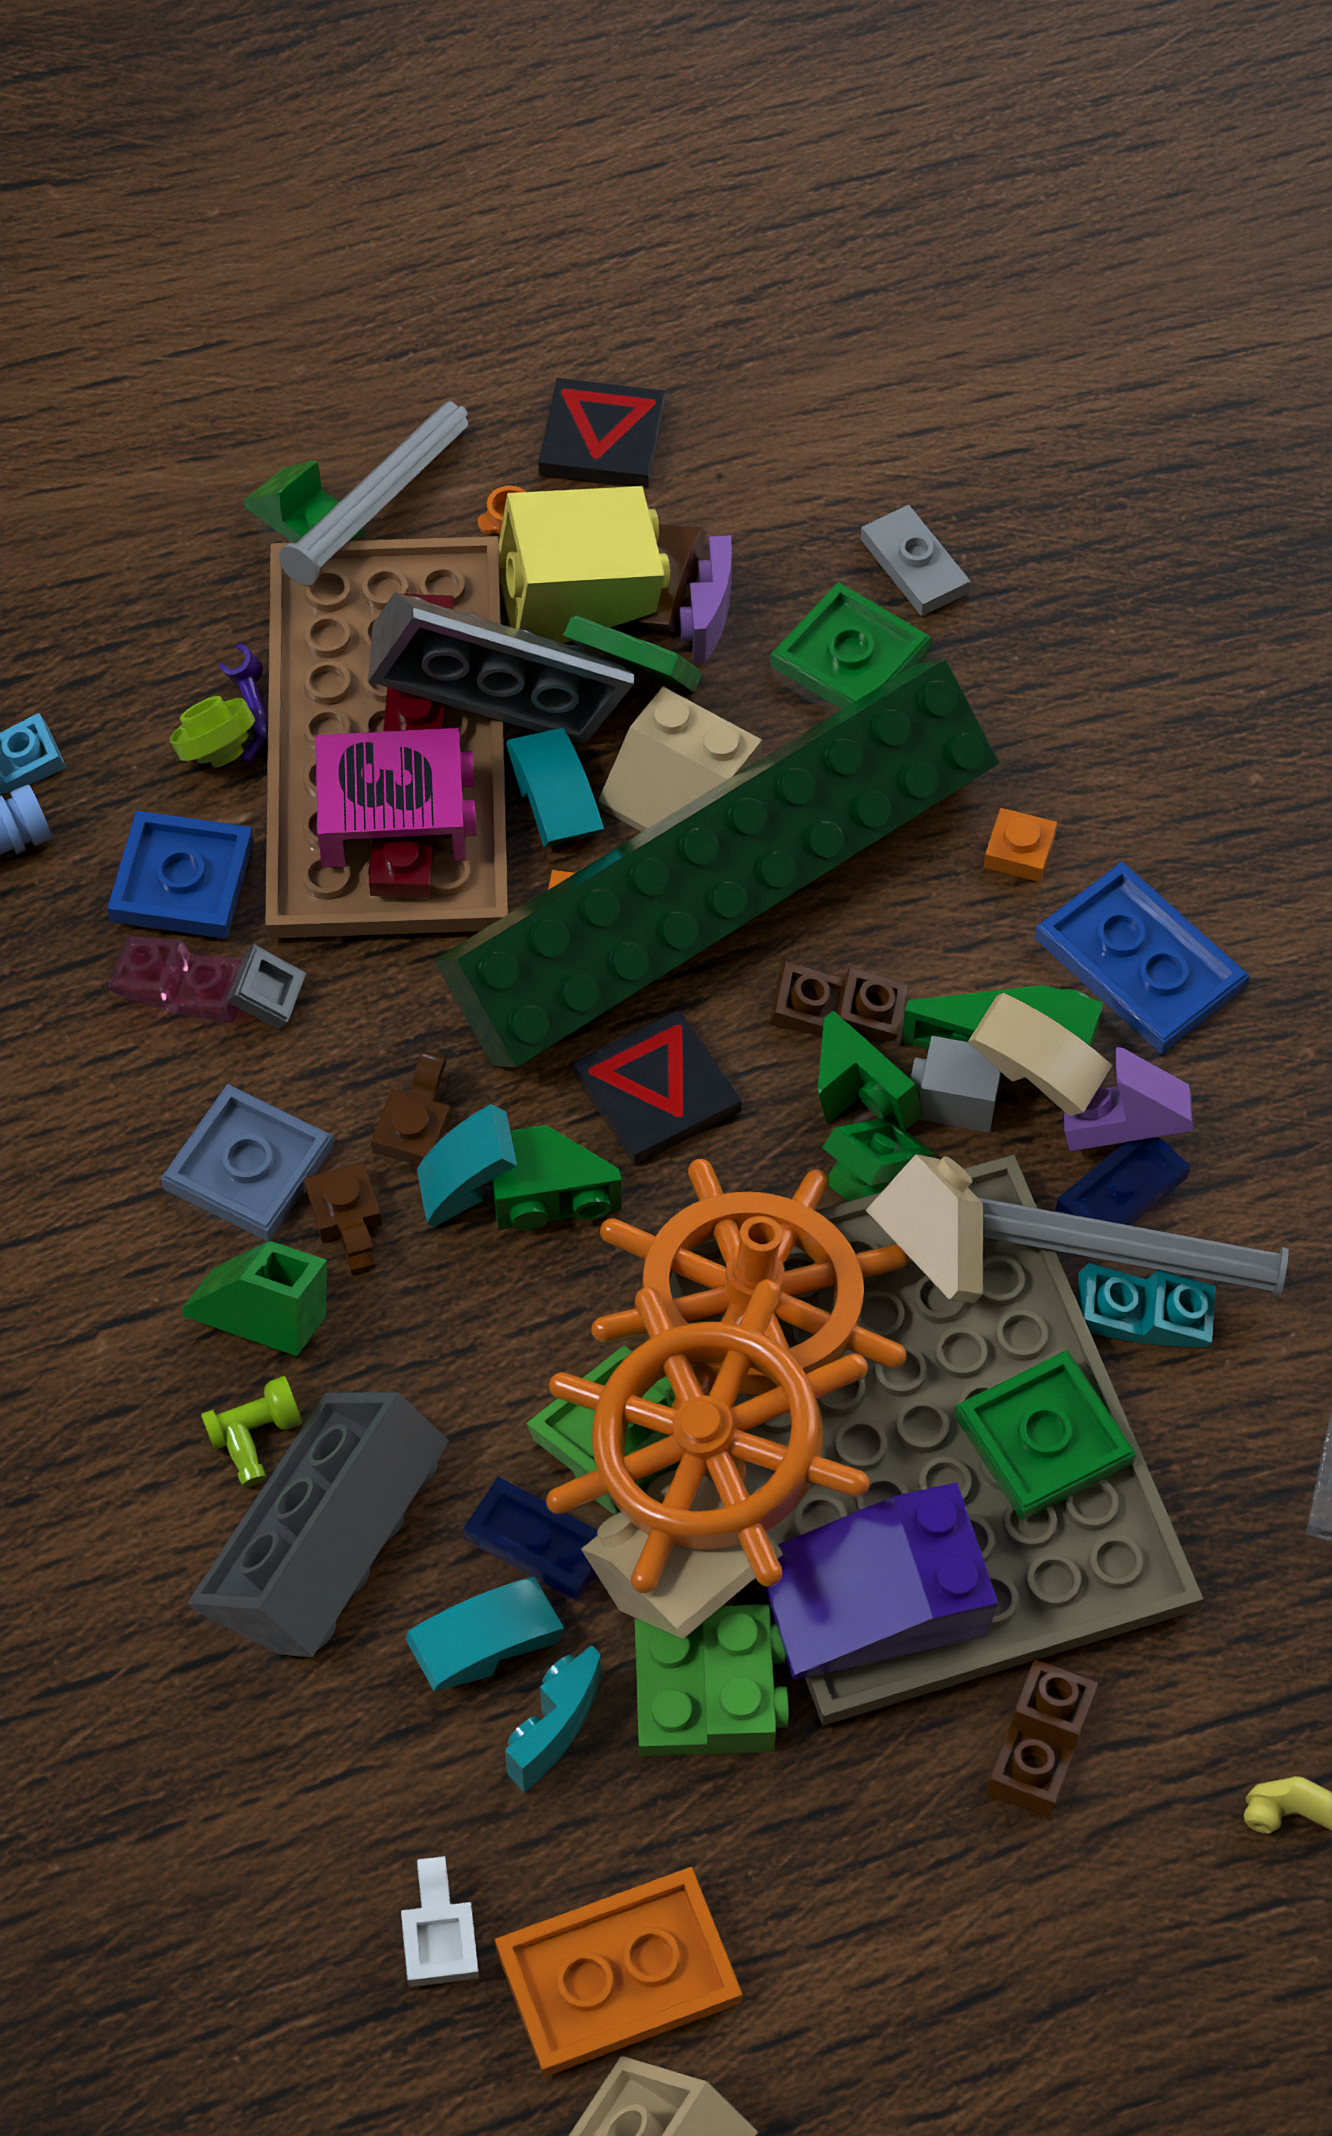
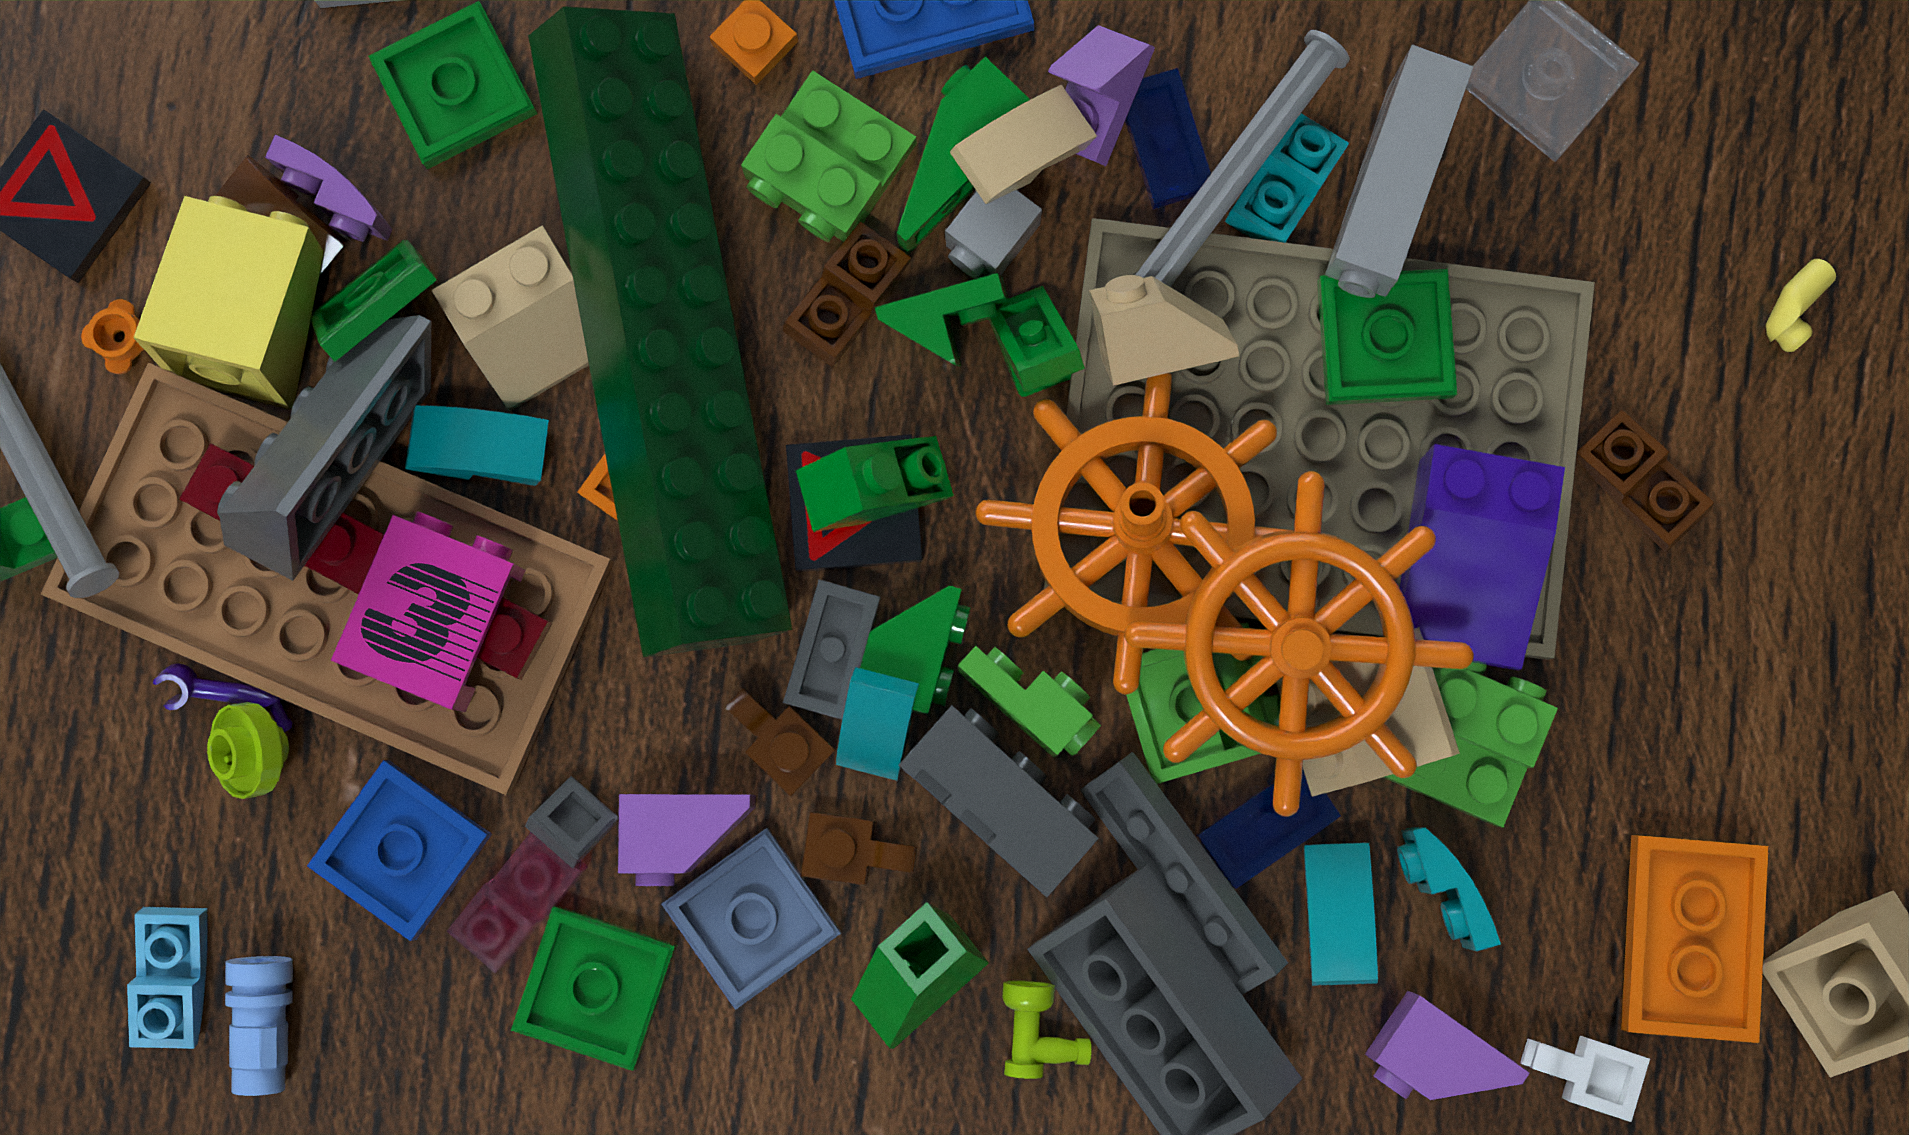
camera: 60 degrees left, 25 degrees up
(130, 1069) = (594, 987): none -> green tile
(296, 1065) = (673, 832): none -> medium lavender slope
(391, 1773) = (1437, 1055): none -> medium lavender slope
(451, 1291) = (1001, 798): none -> dark grey wedge
(463, 1470) = (1158, 836): none -> dark grey plate
(528, 1106) = (831, 648): none -> dark grey plate
(546, 1277) = (1046, 711): none -> bright green plate
(680, 1076) = (873, 482): none -> green slope
(946, 935) = (827, 158): none -> bright green plate
(1196, 1361) = (1397, 172): none -> light grey slope

